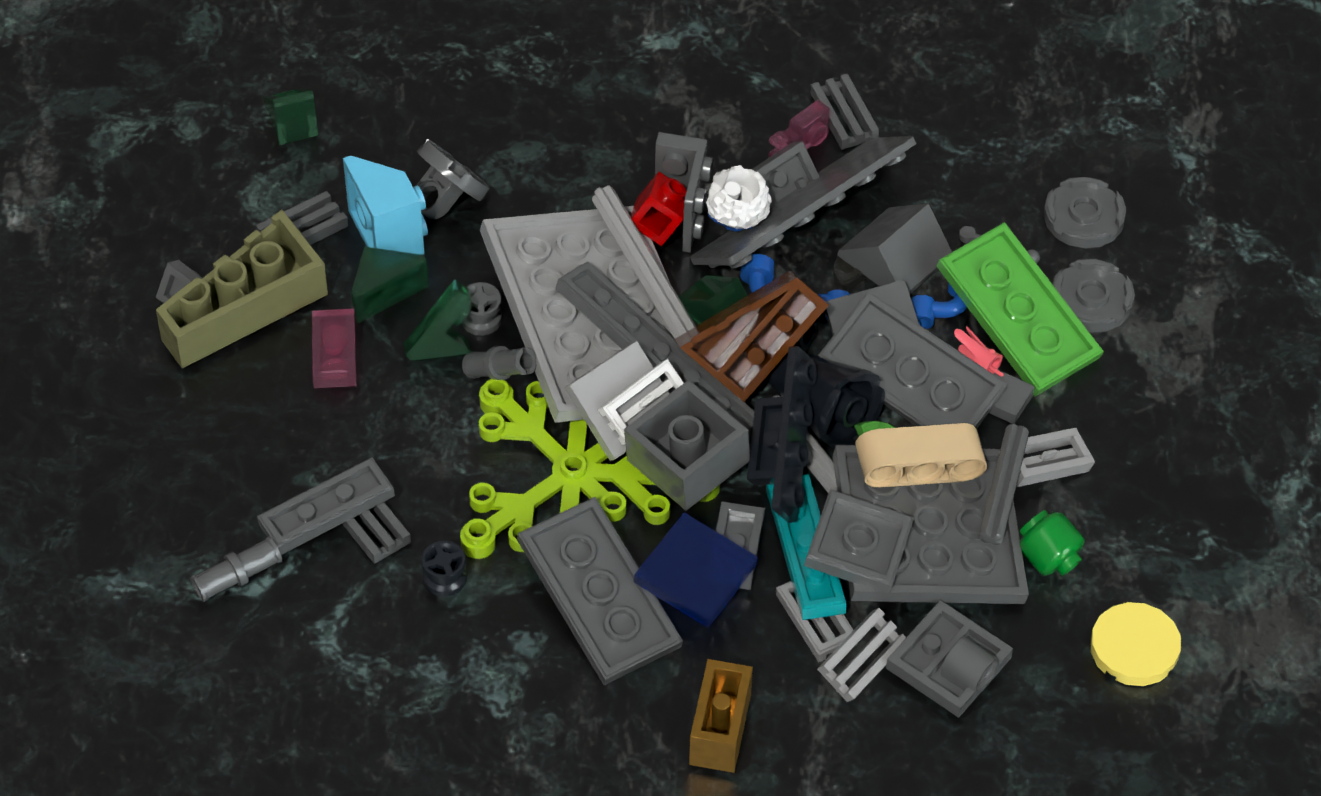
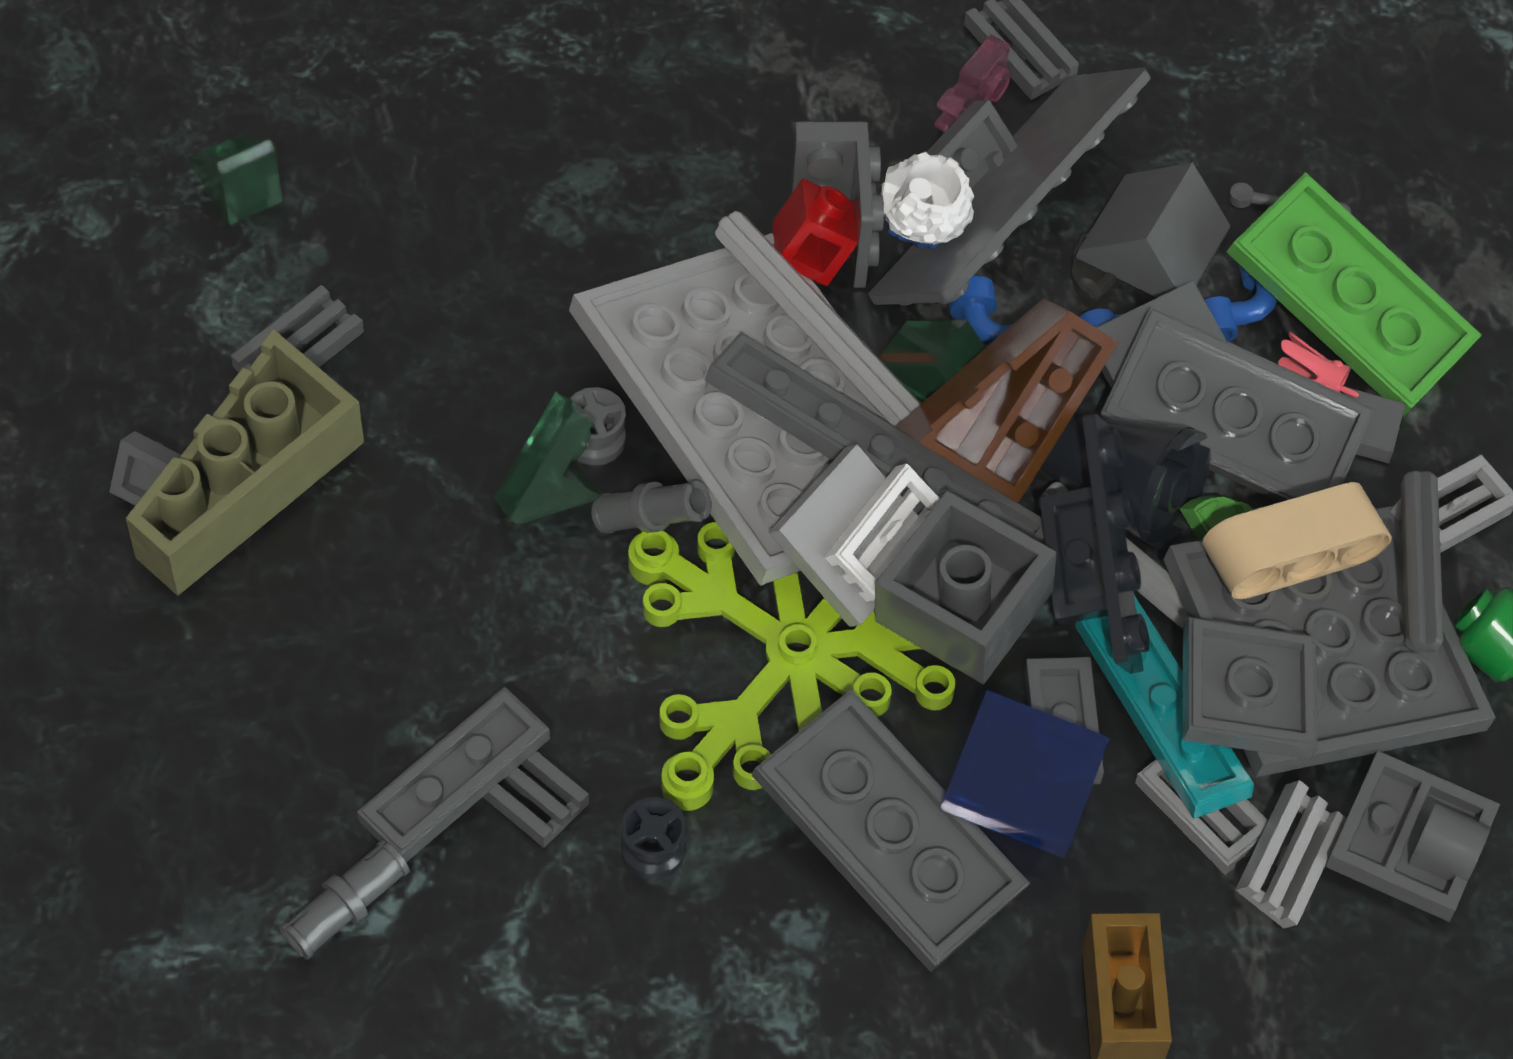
camera: 15 degrees left, 5 degrees up
(334, 348) = (398, 525): clear pink plate -> none
(385, 206) = (420, 302): medium azure slope -> none
(386, 279) = (447, 405): clear green slope -> none
(448, 178) = (499, 238): dark grey tile -> none
(1084, 213) = (1390, 136): dark grey tile -> none
(1096, 293) = (1445, 250): dark grey tile -> none

